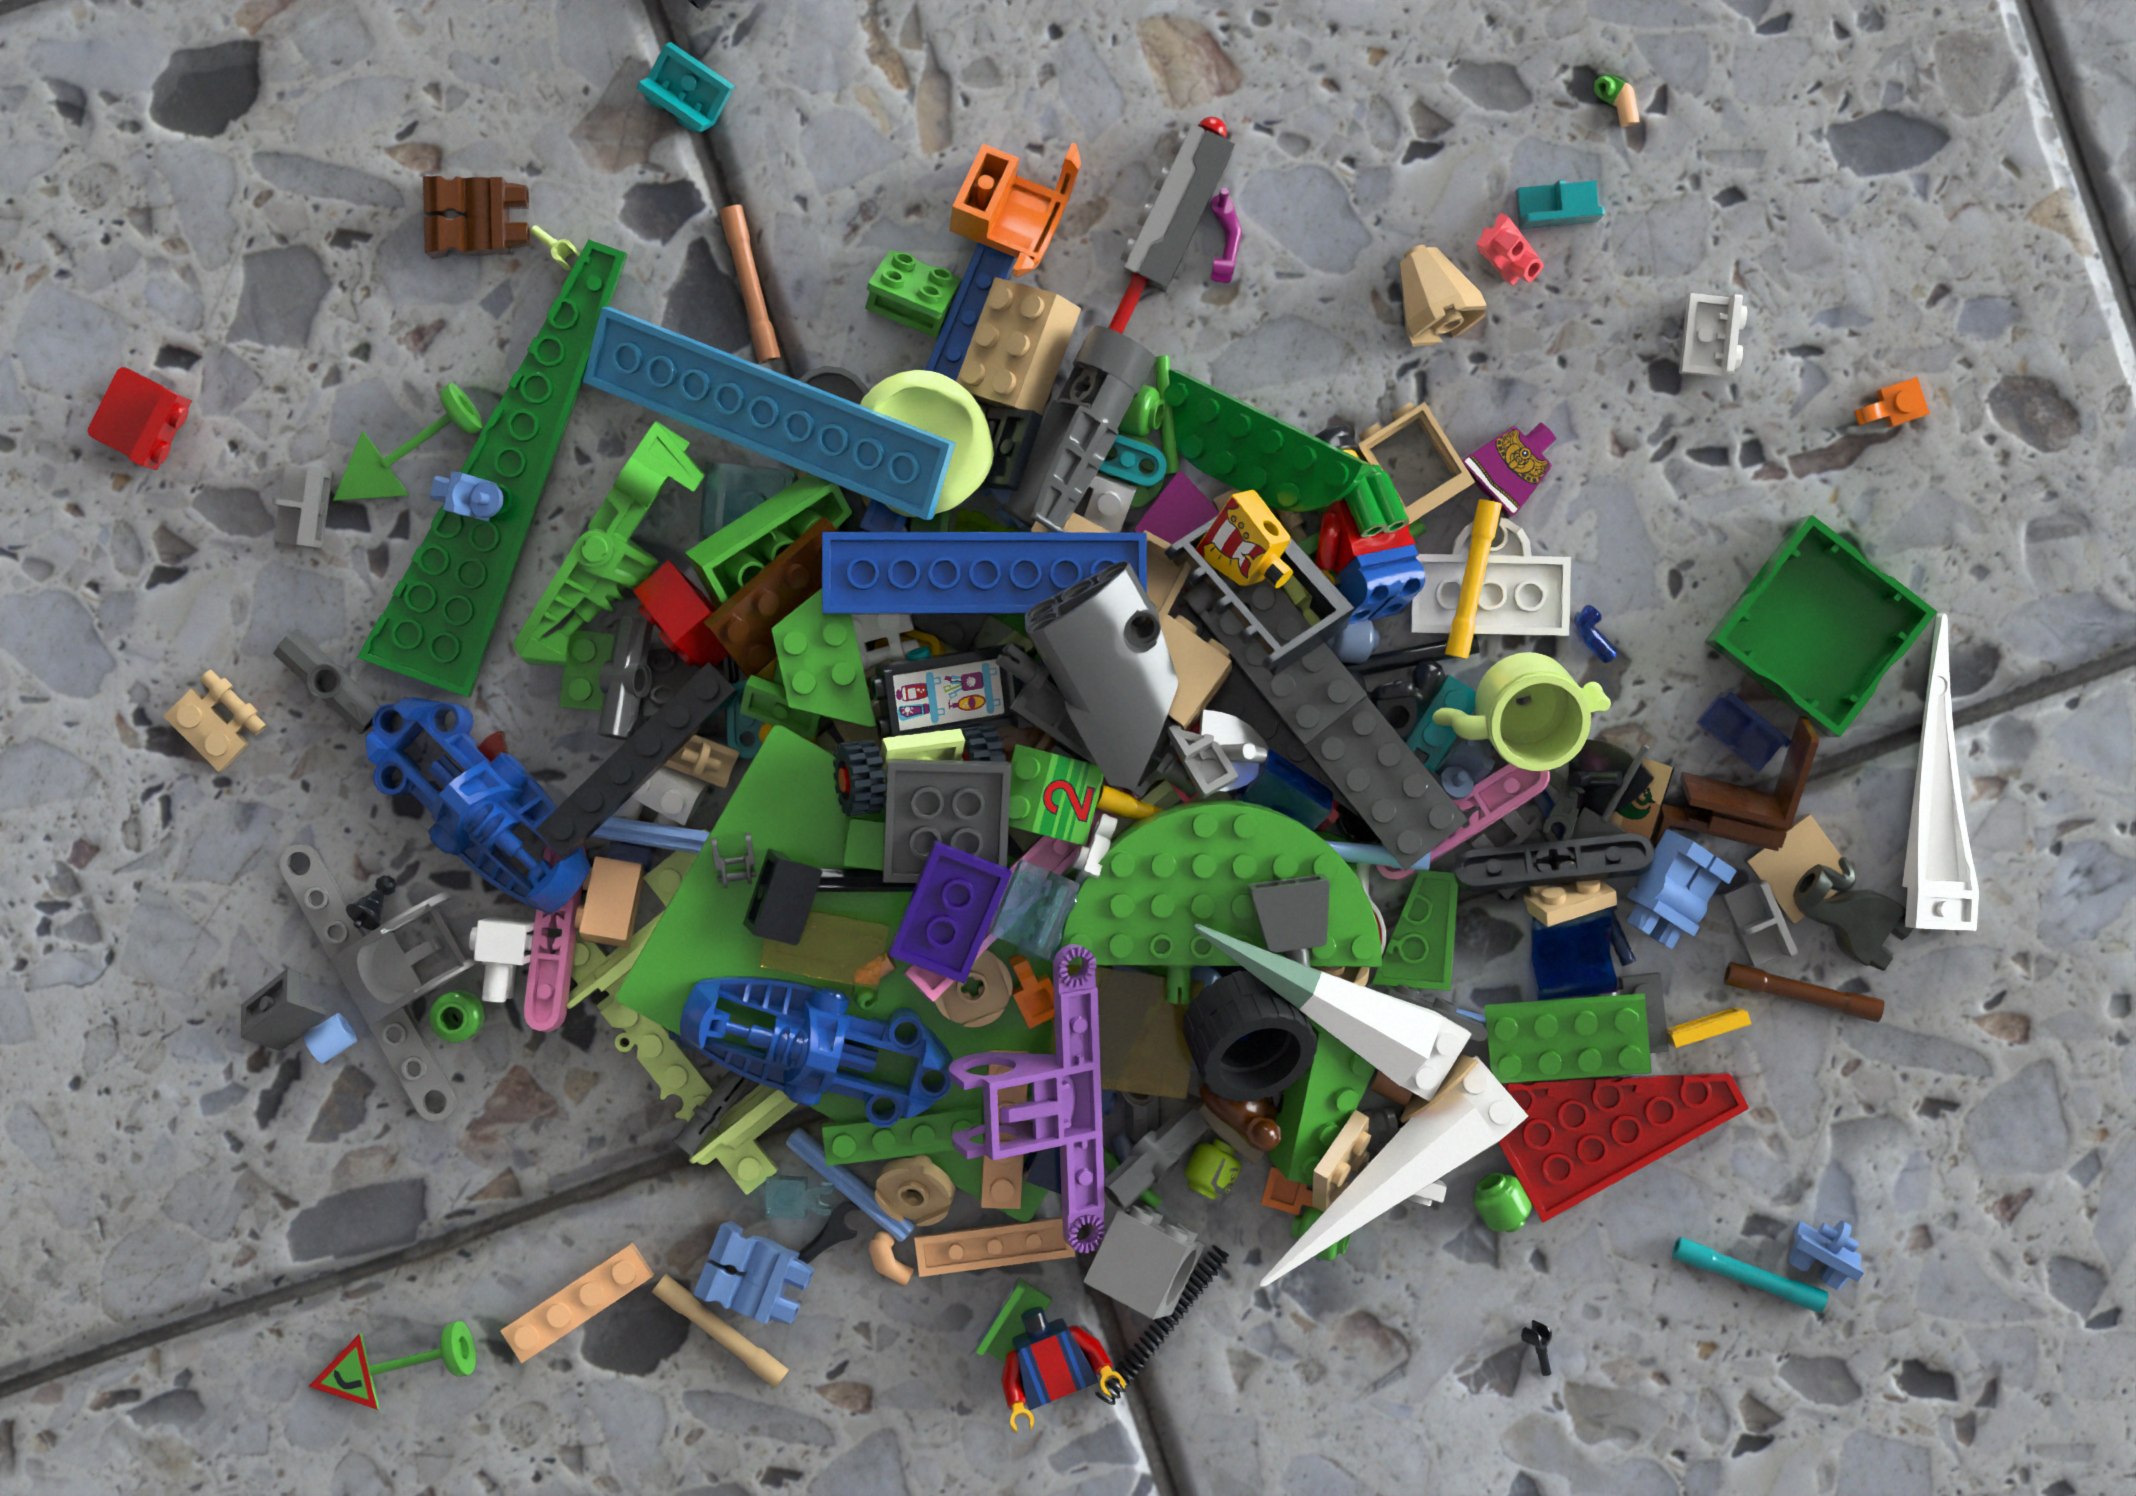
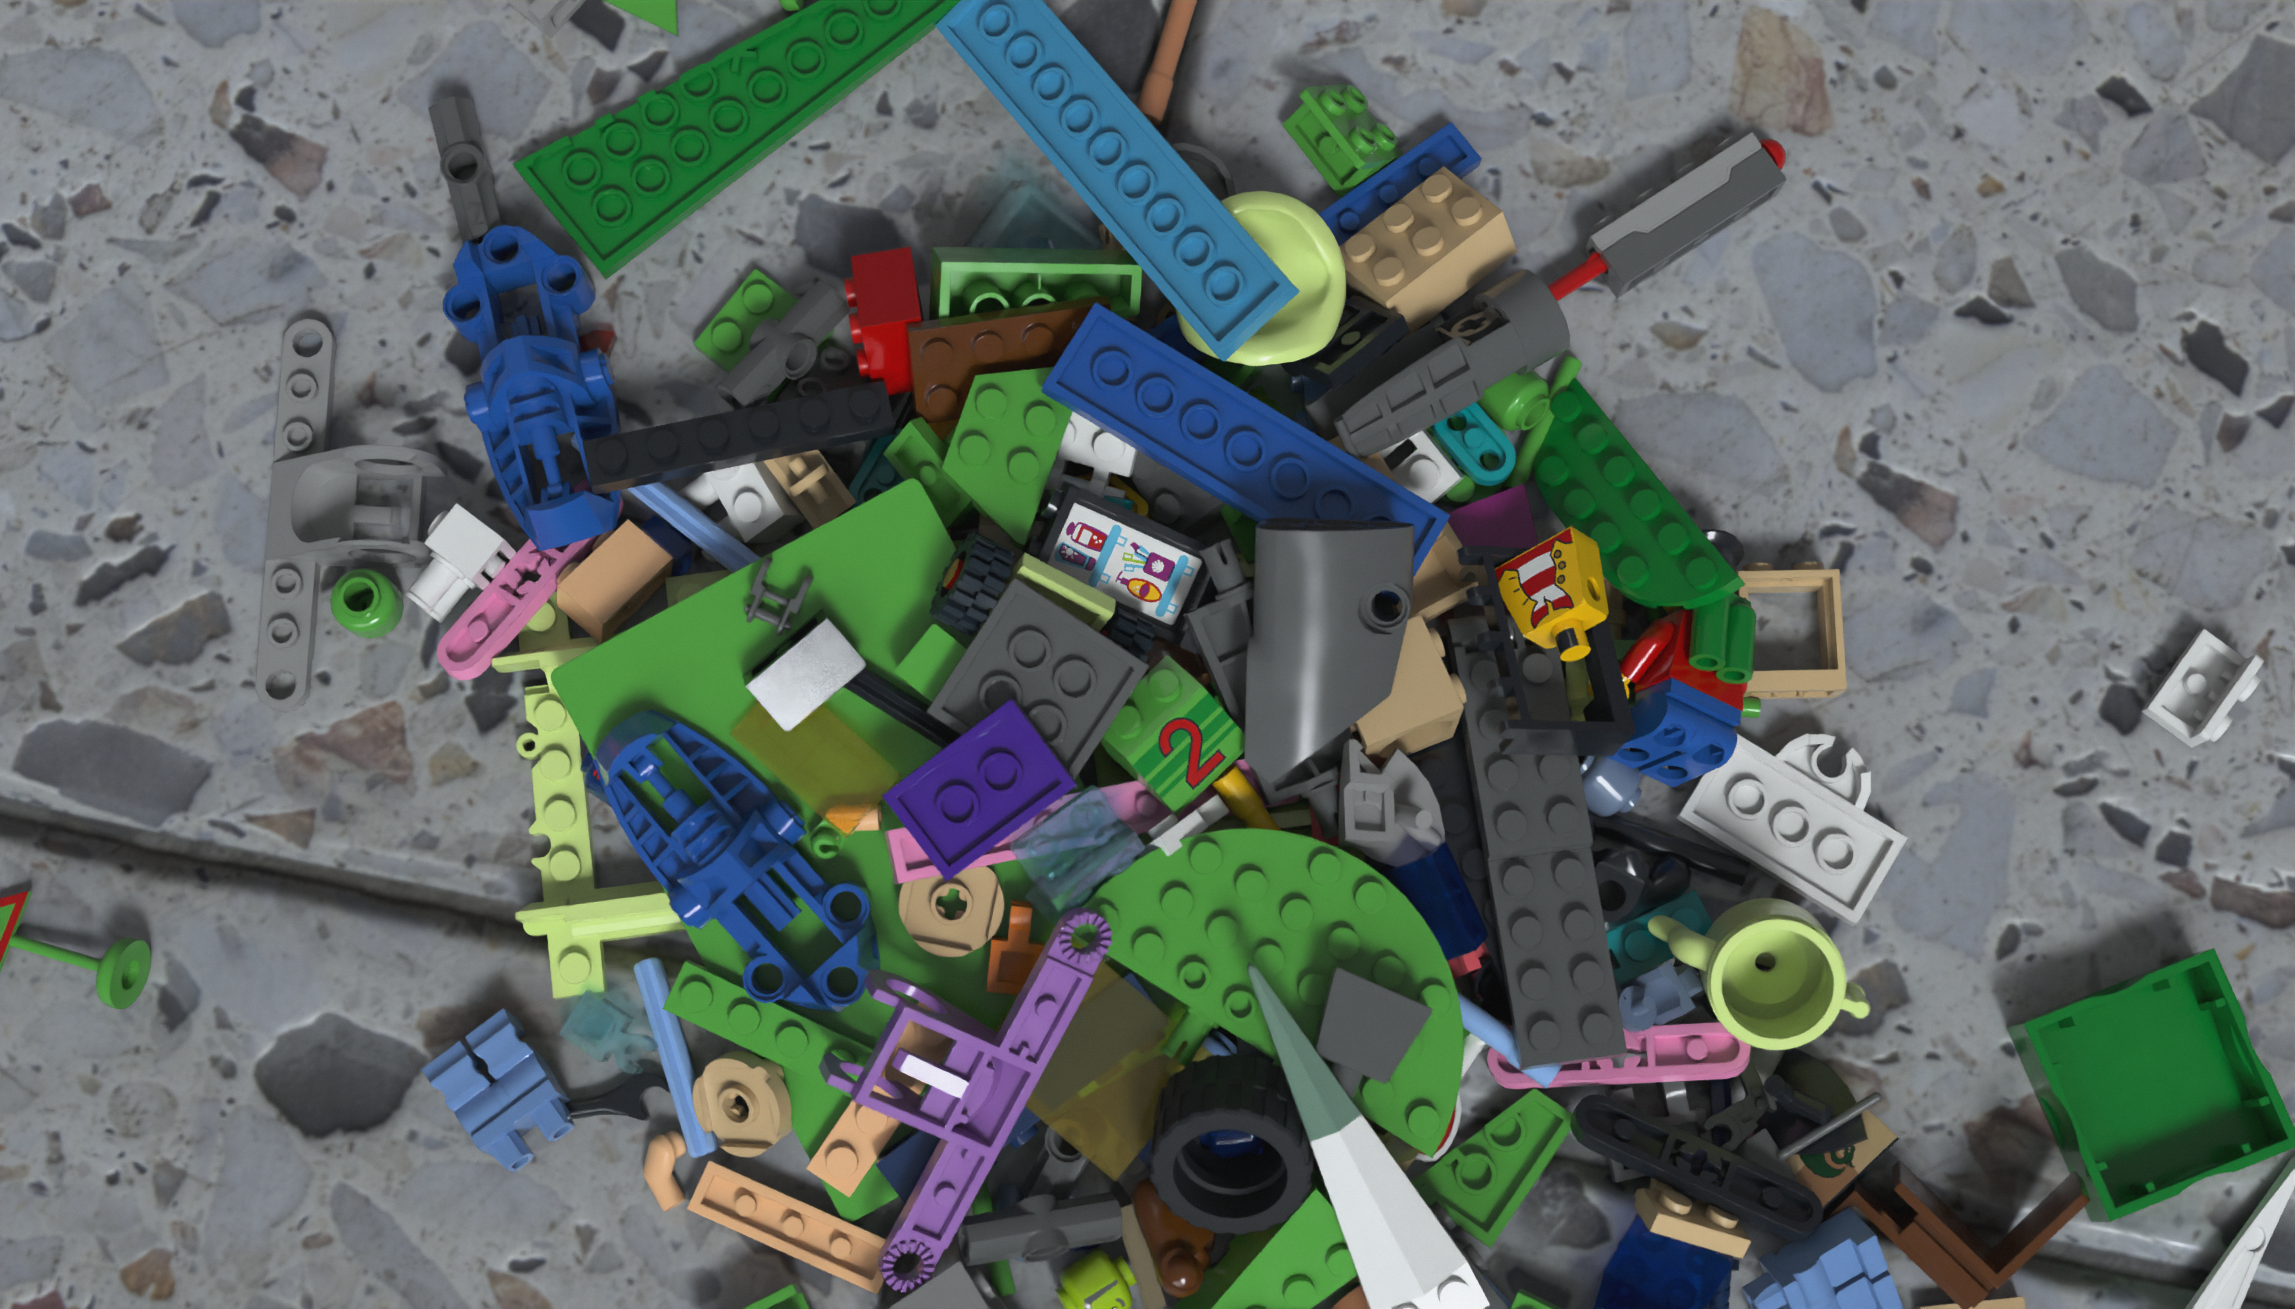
camera: 25 degrees right, 10 degrees down
(207, 729) = (307, 148): tan plate -> none
(278, 1013) = (177, 486): dark grey panel -> none
(330, 1038) = (215, 547): light blue gear -> none
(368, 909) = (349, 430): black piece -> none
(467, 495) = (738, 57): medium blue hips -> none
(577, 1302) = (288, 1004): light nougat plate -> none
(605, 557) = (840, 200): bright green piece -> none
(711, 1111) = (576, 874): dark grey pin -> none
(755, 1358) = (443, 1189): tan piece -> none
(1009, 210) = (1497, 111): orange piece -> none
(1225, 213) = (1731, 254): magenta piece -> none
(1436, 297) = (1915, 470): tan cone -> none
(1482, 534) = (1744, 837): yellow piece -> none
(1509, 251) = (2024, 465): coral hips -> none
(1511, 466) = (1894, 699): torso -> none
(1558, 204) = (2106, 452): teal panel -> none
(1591, 636) = (1881, 941): clear blue arm -> none
(1619, 95) = (2238, 377): arm -> none
(1742, 730) = (1998, 1152): clear blue panel -> none

